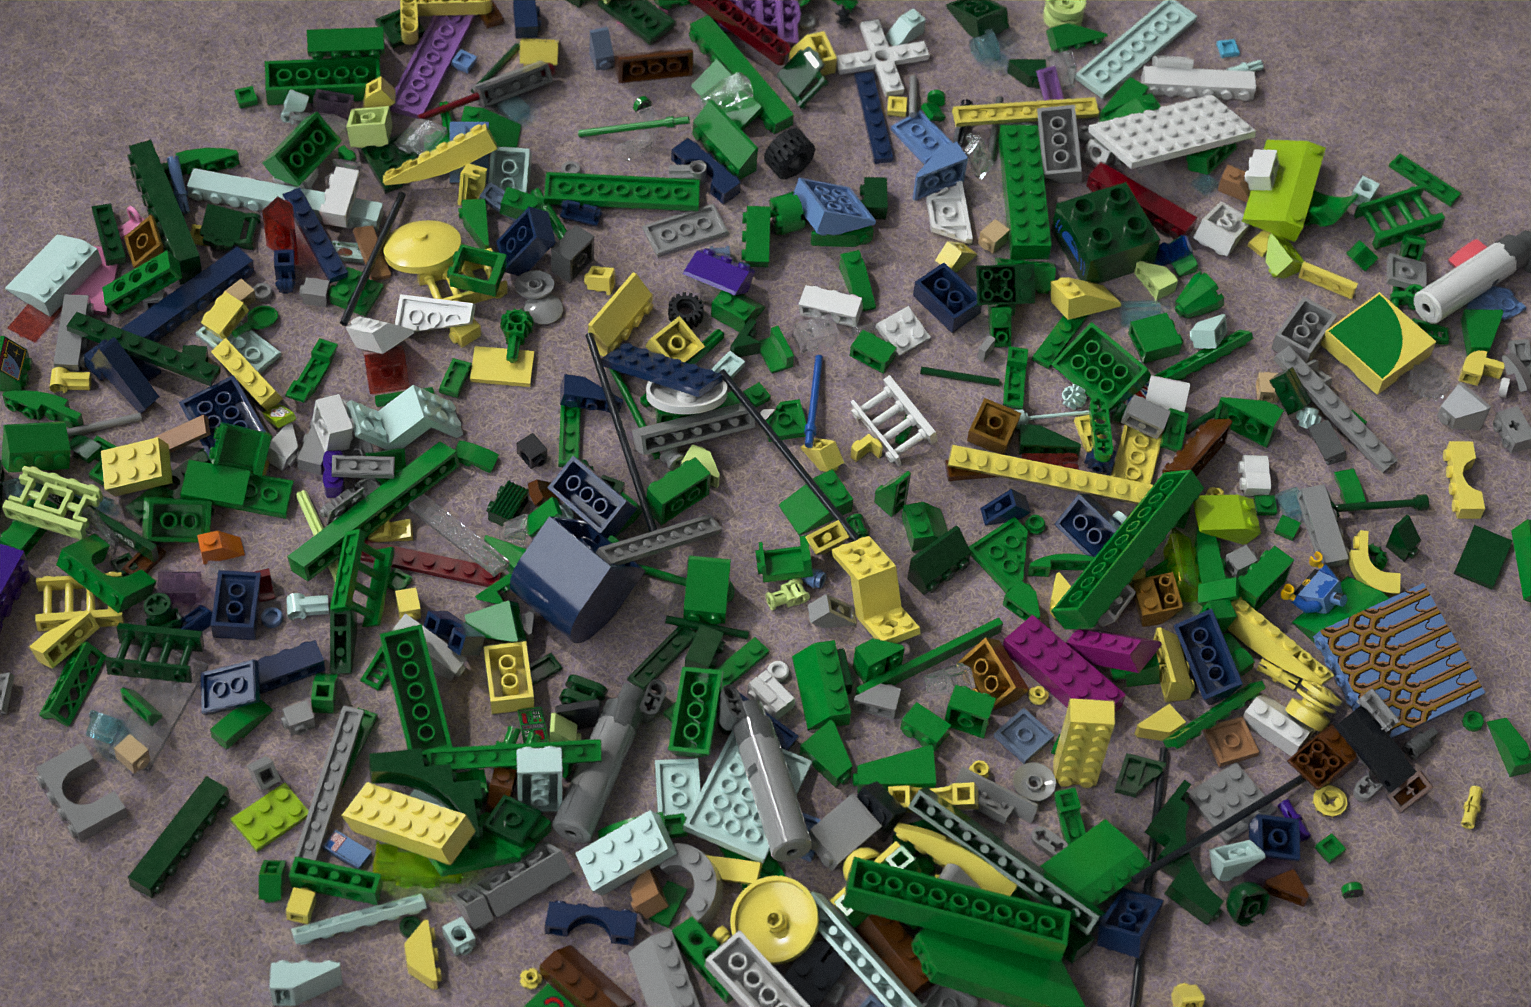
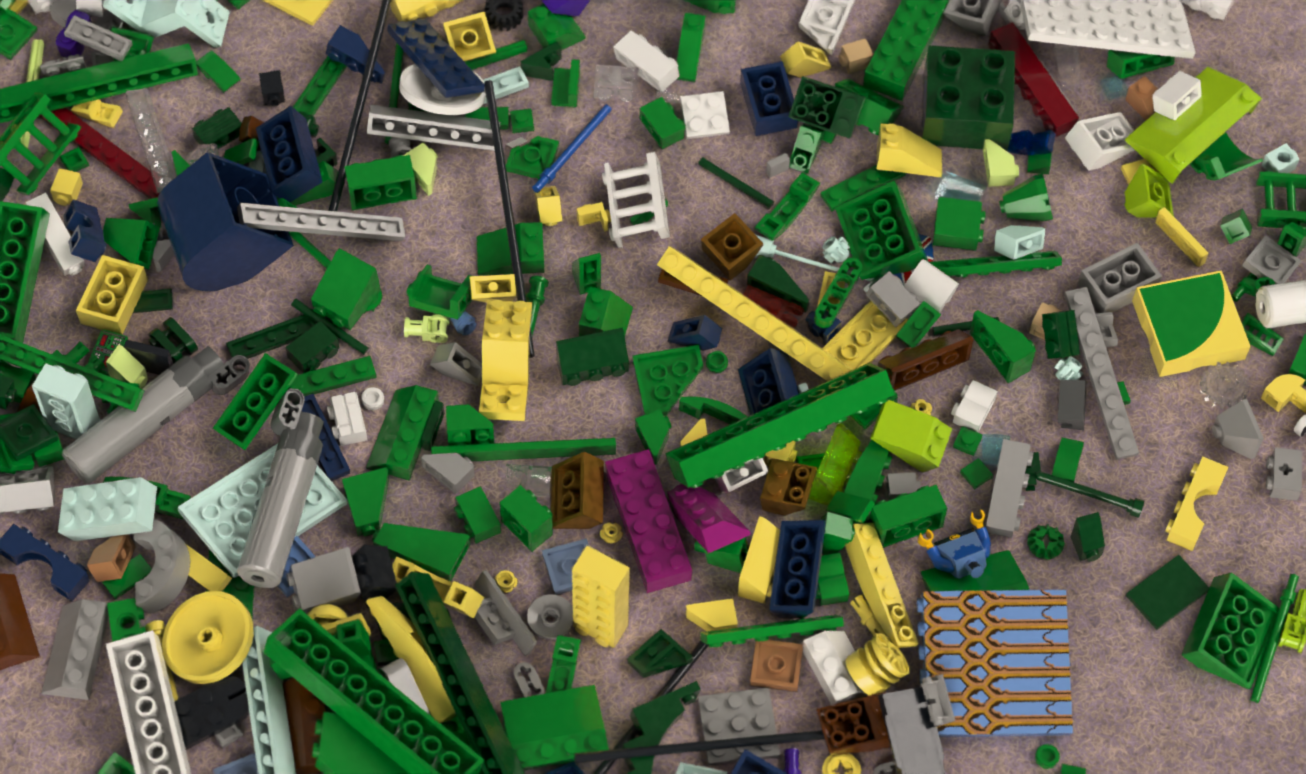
camera: 30 degrees right, 5 degrees up
(677, 785) = (204, 465): light aqua plate -> none
(1367, 573) = (1031, 566): light yellow arch -> none
(1420, 743) = (974, 754): dark grey hinge -> none

